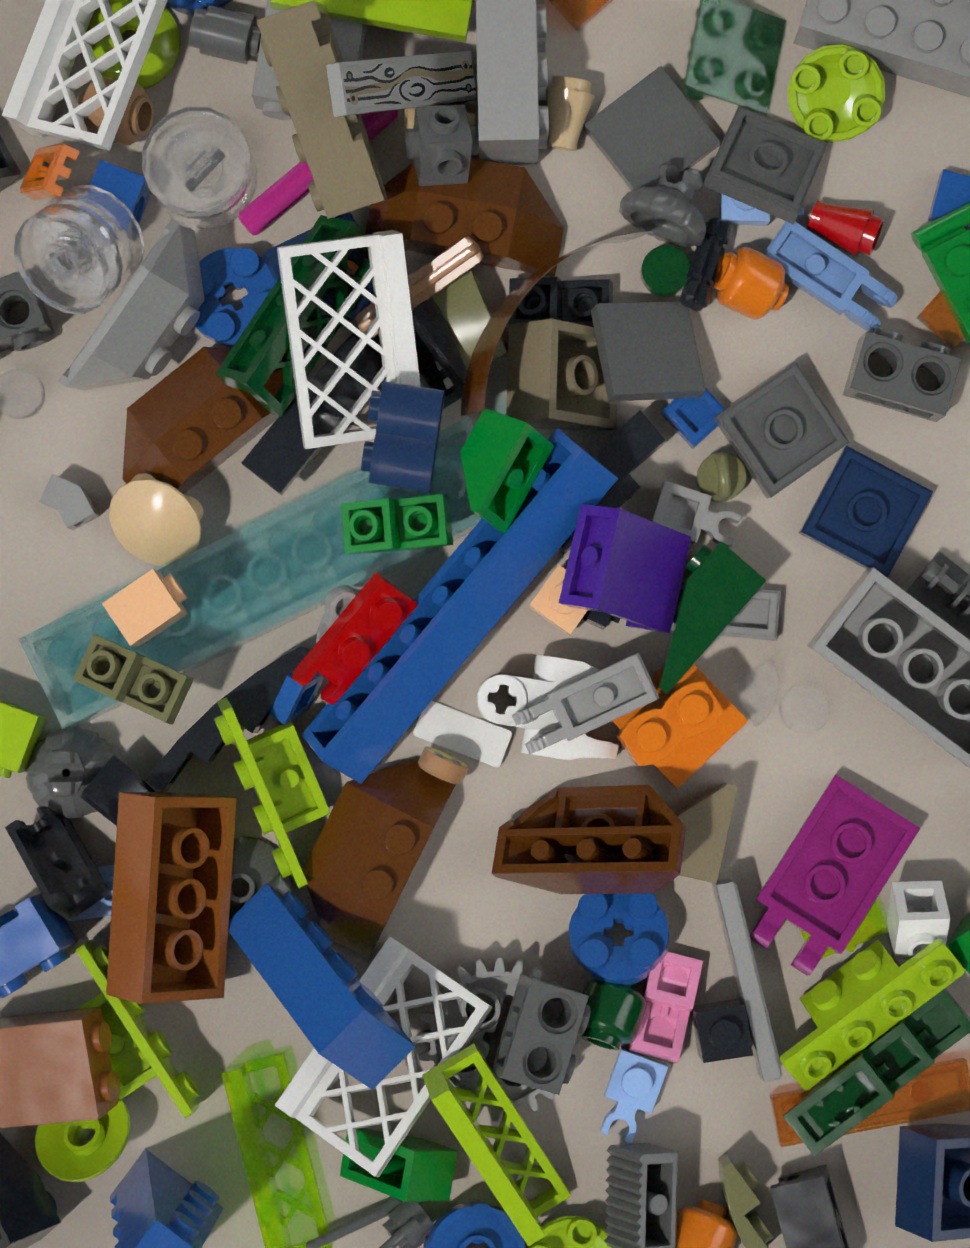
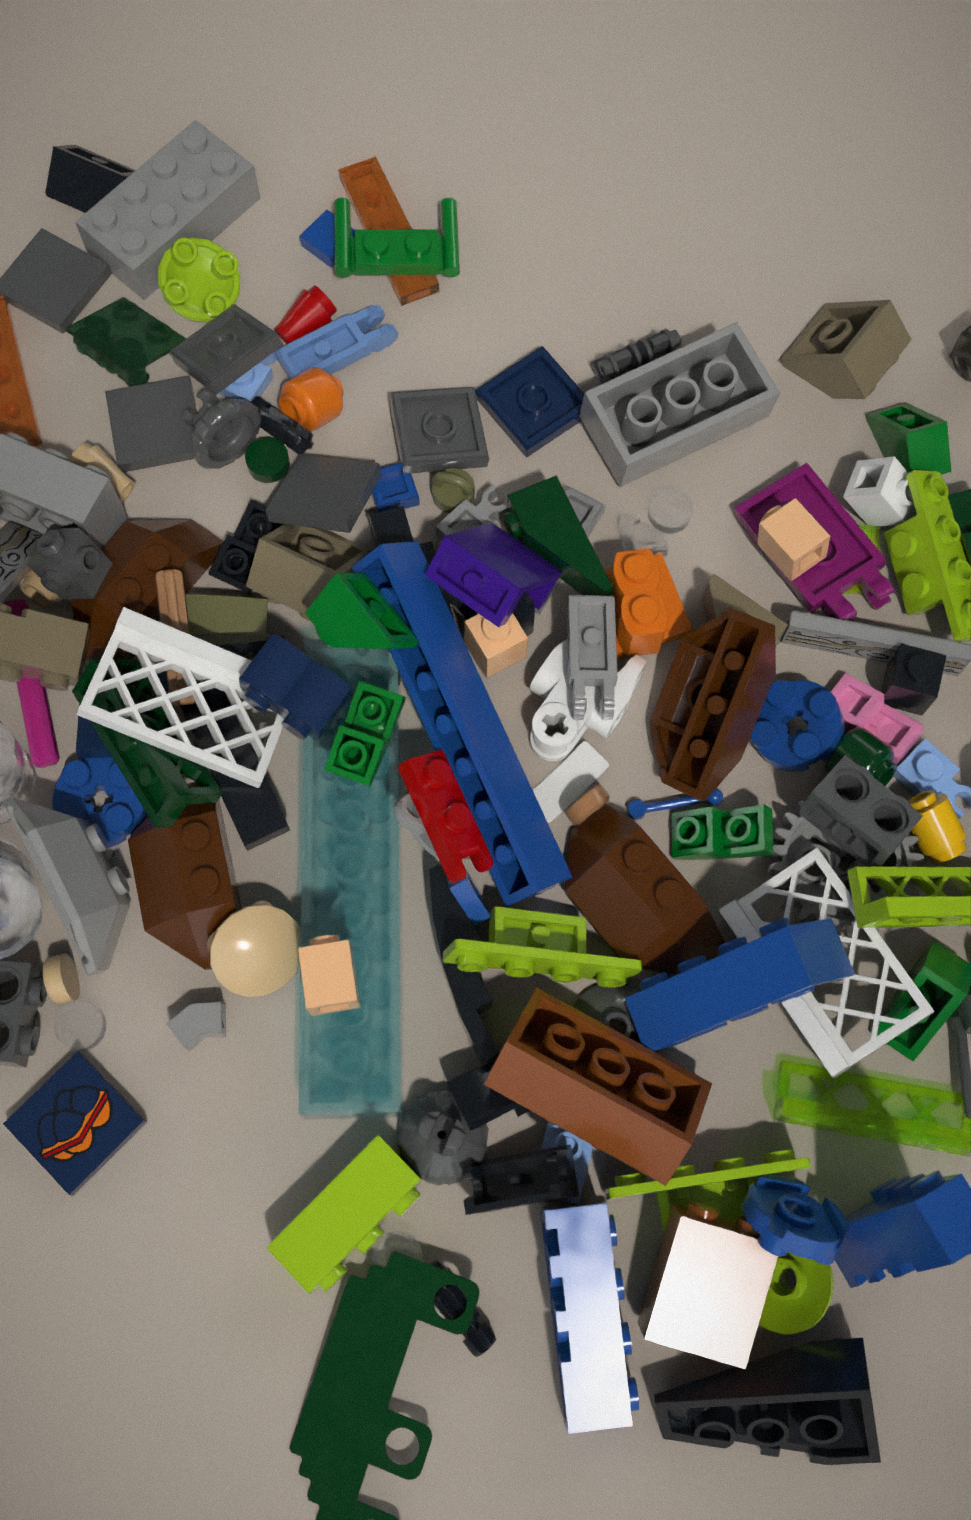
camera: 70 degrees left, 15 degrees down
(49, 355) = (61, 979): none -> tan tile
(109, 1121) = (793, 1220): none -> blue plate
(133, 679) = (387, 1022): olive slope -> none
(466, 815) = (637, 808): none -> blue hinge
(475, 907) = (722, 834): none -> green slope
(478, 370) = (254, 597): reddish brown sticker -> none
(575, 1111) = (939, 829): none -> yellow brick
(814, 849) = (792, 538): none -> light nougat brick
(900, 388) = (448, 331): dark grey brick -> none

